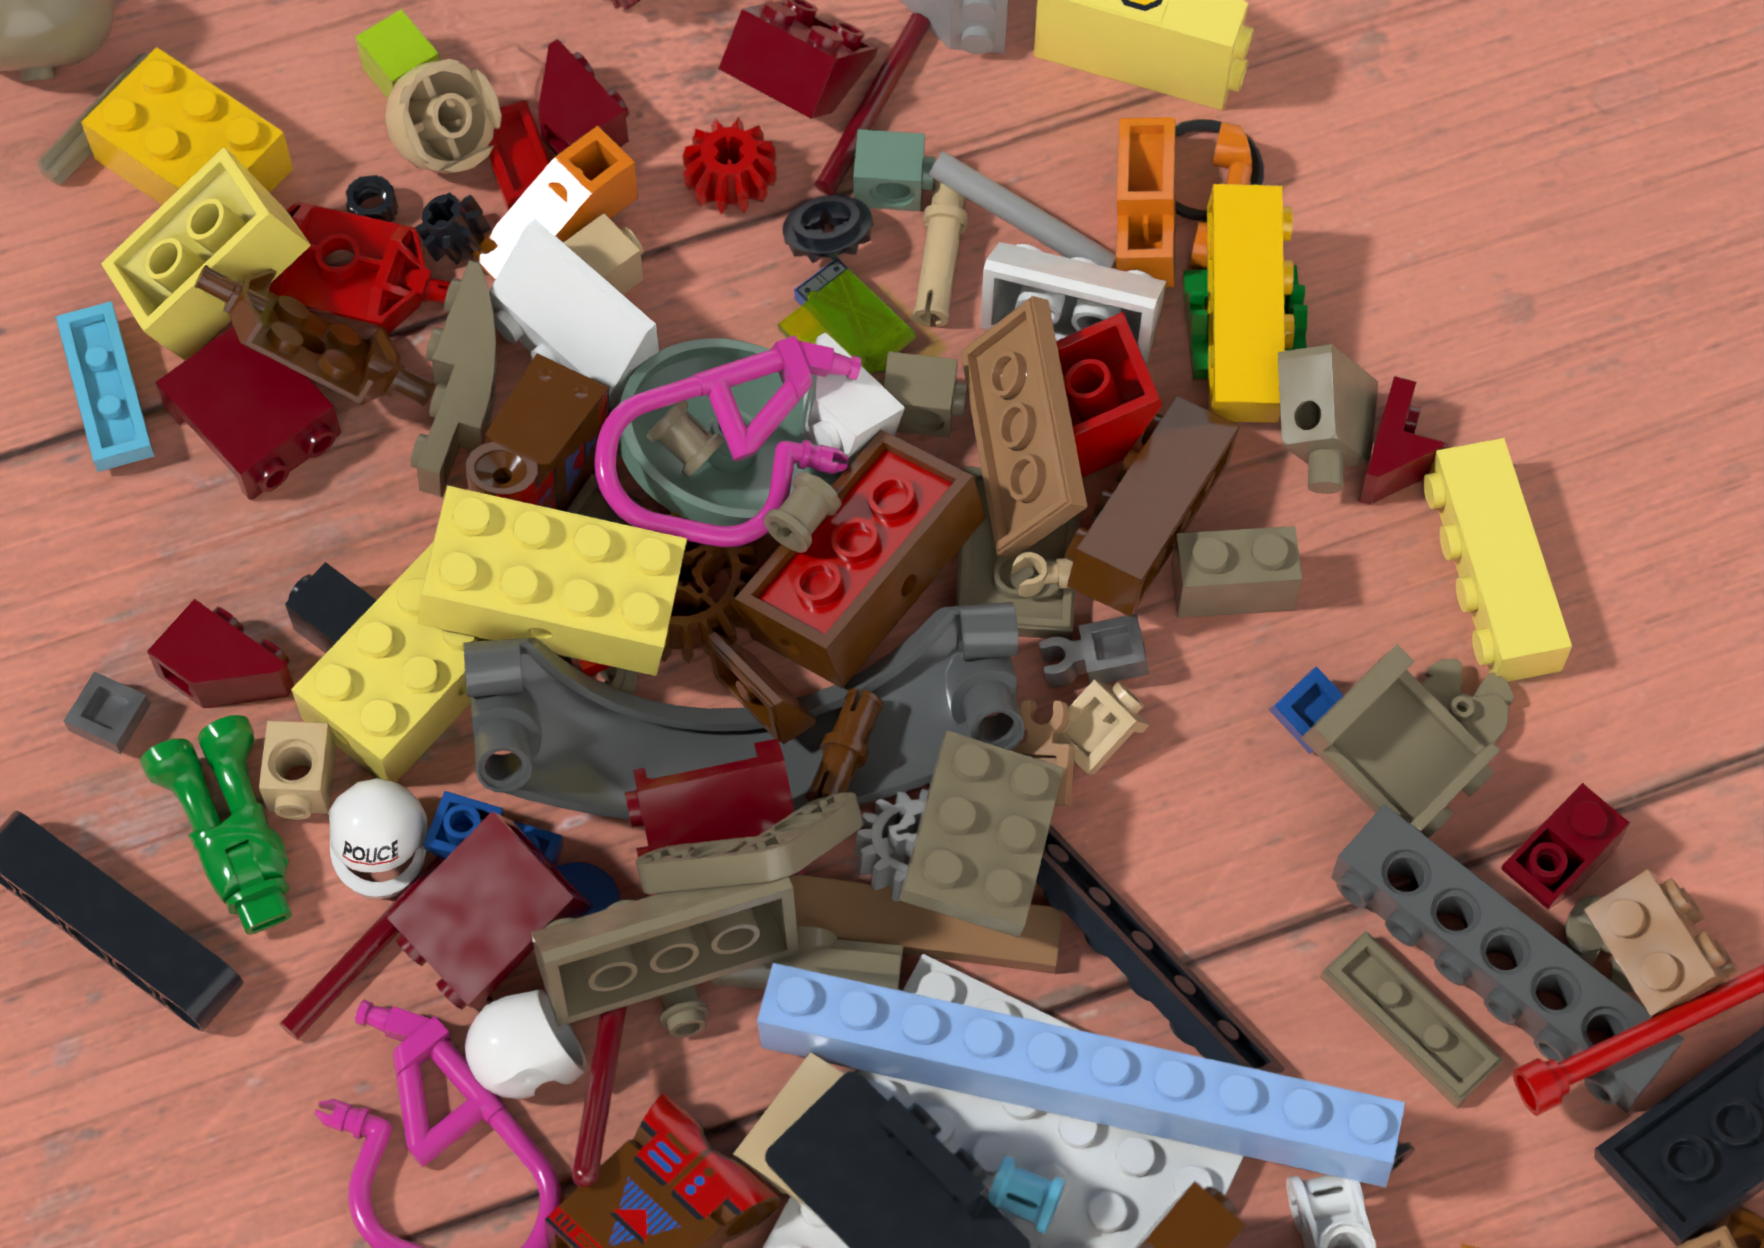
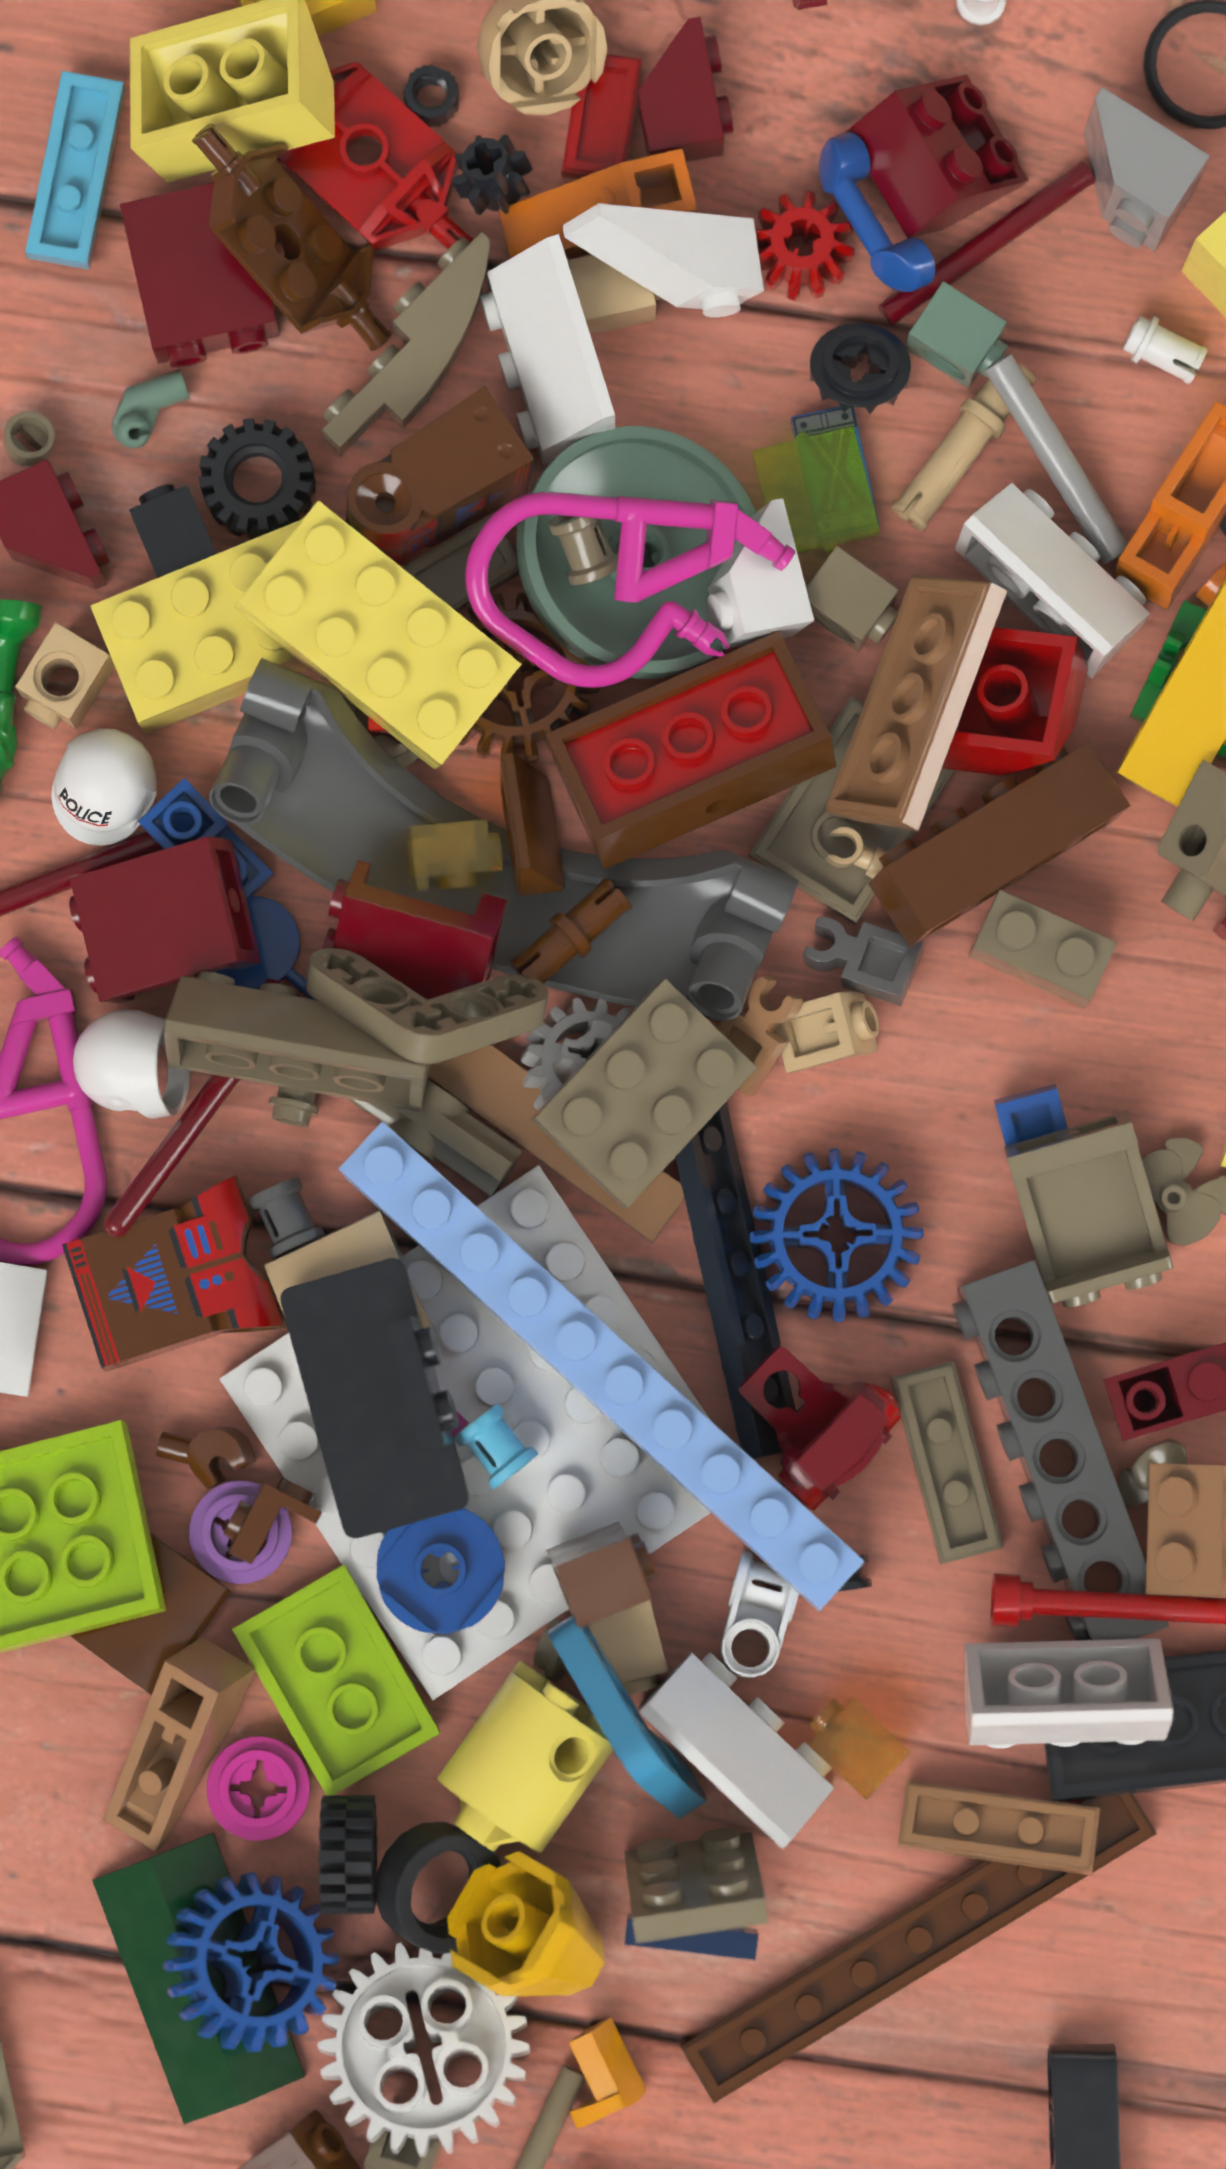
camera: 30 degrees right, 20 degrees up
(167, 599) = (36, 431): none -> dark tan hinge
(252, 532) = (141, 406): none -> sand green arm
(373, 511) = (248, 442): none -> black tyre
(632, 201) = (676, 254): none -> white slope
(707, 730) = (452, 854): none -> clear yellow brick
(726, 1107) = (285, 1217): none -> dark grey bush
(802, 512) = (650, 687): dark tan bush -> none
(817, 139) = (900, 266): none -> blue bar
(1052, 107) = (1164, 349): none -> white pin
(1243, 851) = (890, 1233): none -> blue gear
(1304, 1024) = (829, 1434): none -> dark red piece
(1641, 1134) = (1066, 1692): none -> white slope

